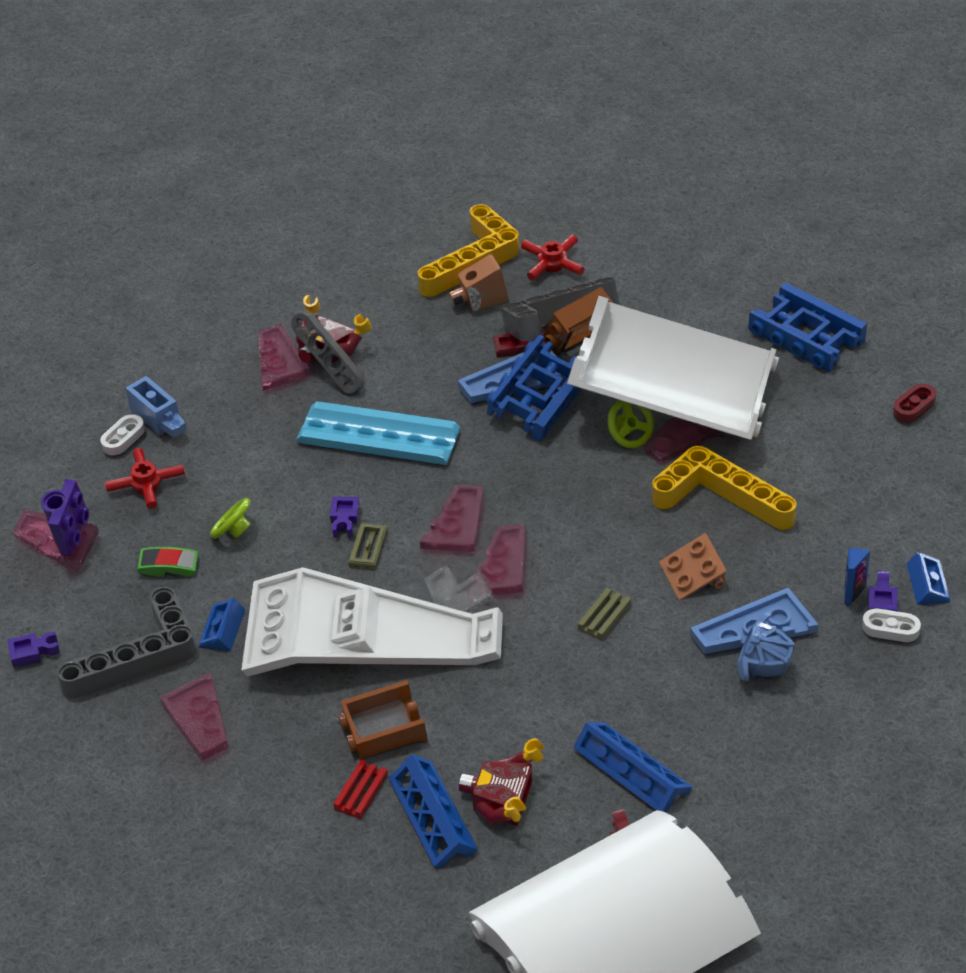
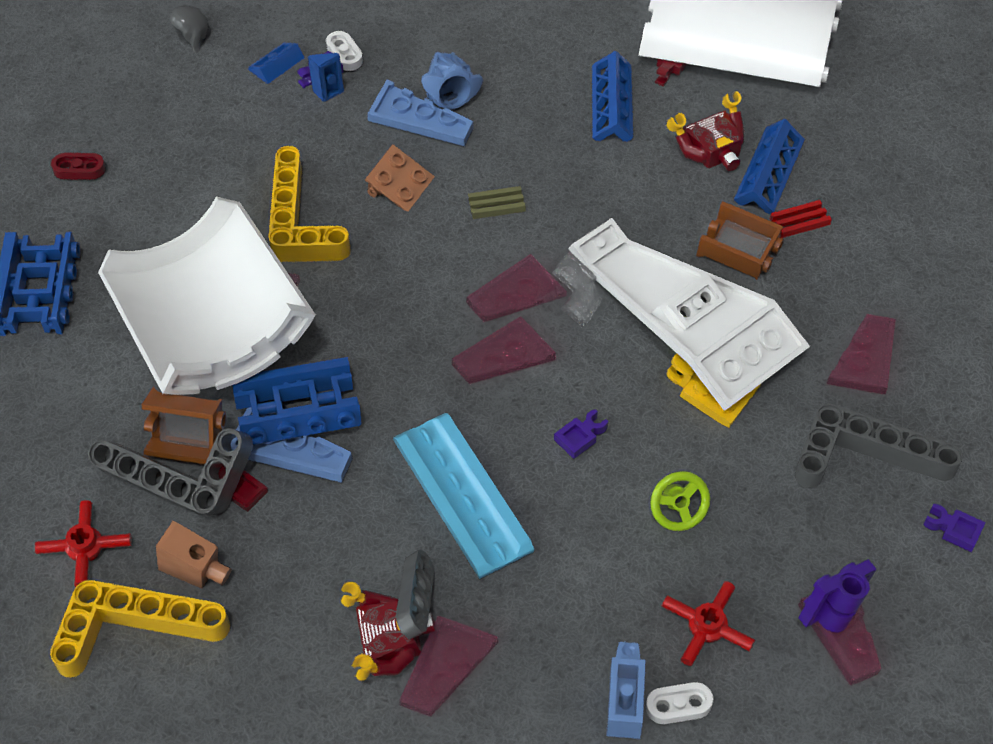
camera: 135 degrees left, 10 degrees up
(159, 560) = (769, 516): slope -> none
(222, 625) = (777, 423): blue slope -> none
(365, 562) = (595, 404): olive tile -> none

